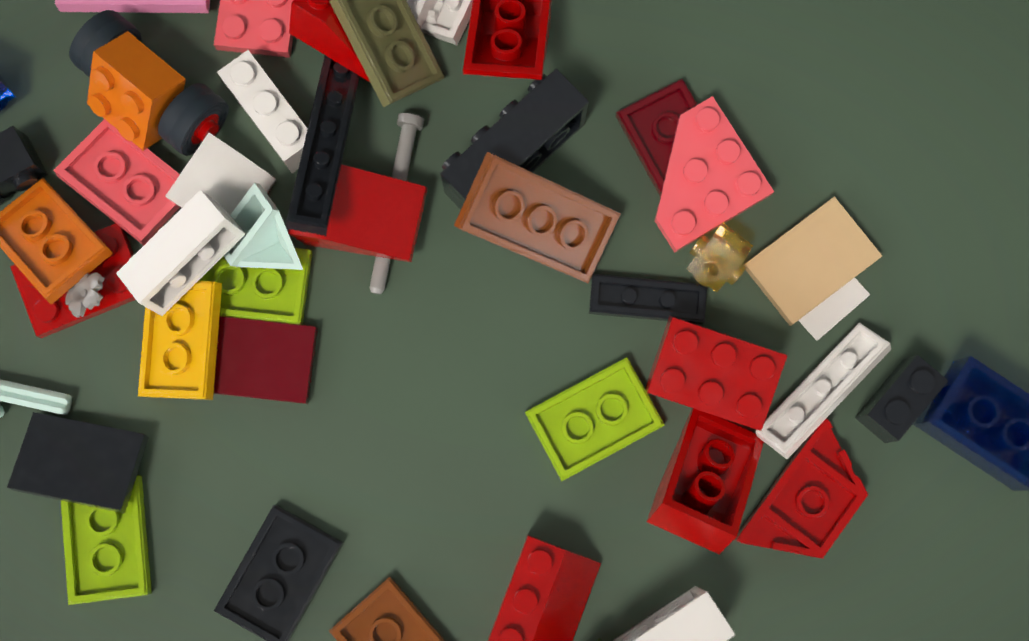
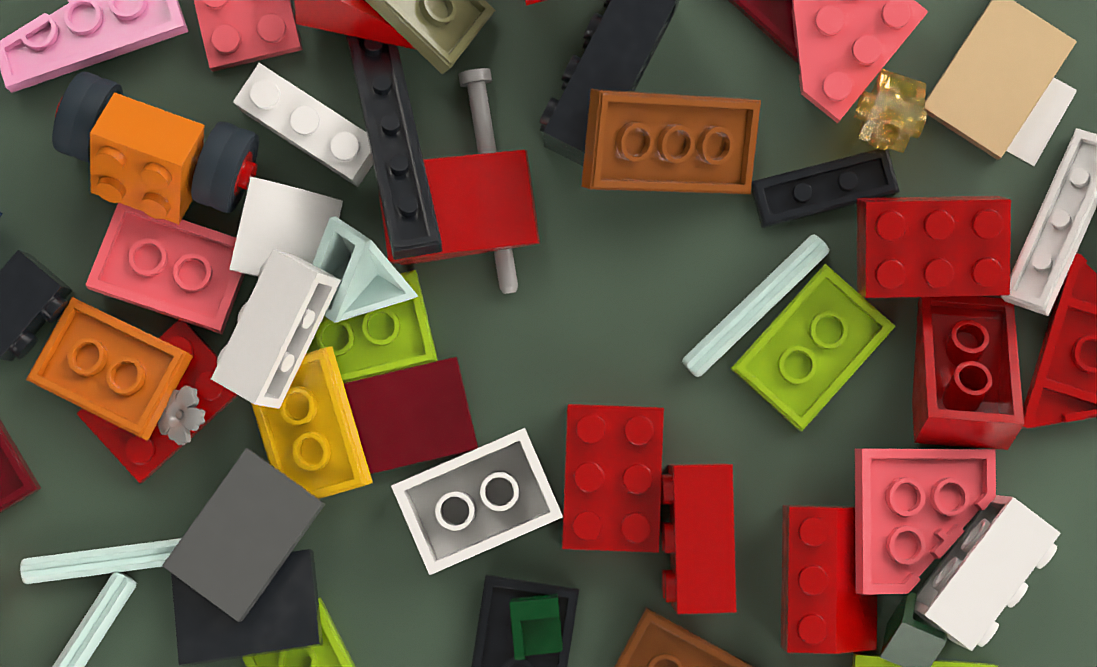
camera: 15 degrees left, 5 degrees up
(96, 404) = (243, 535): none -> dark grey tile
(286, 442) = (477, 501): none -> white brick
(294, 558) = (535, 625): none -> dark green panel
(398, 463) = (613, 478): none -> red brick
(446, 535) = (699, 538): none -> red brick
(561, 370) = (755, 305): none -> light aqua axle
(627, 575) = (914, 510): none -> coral plate

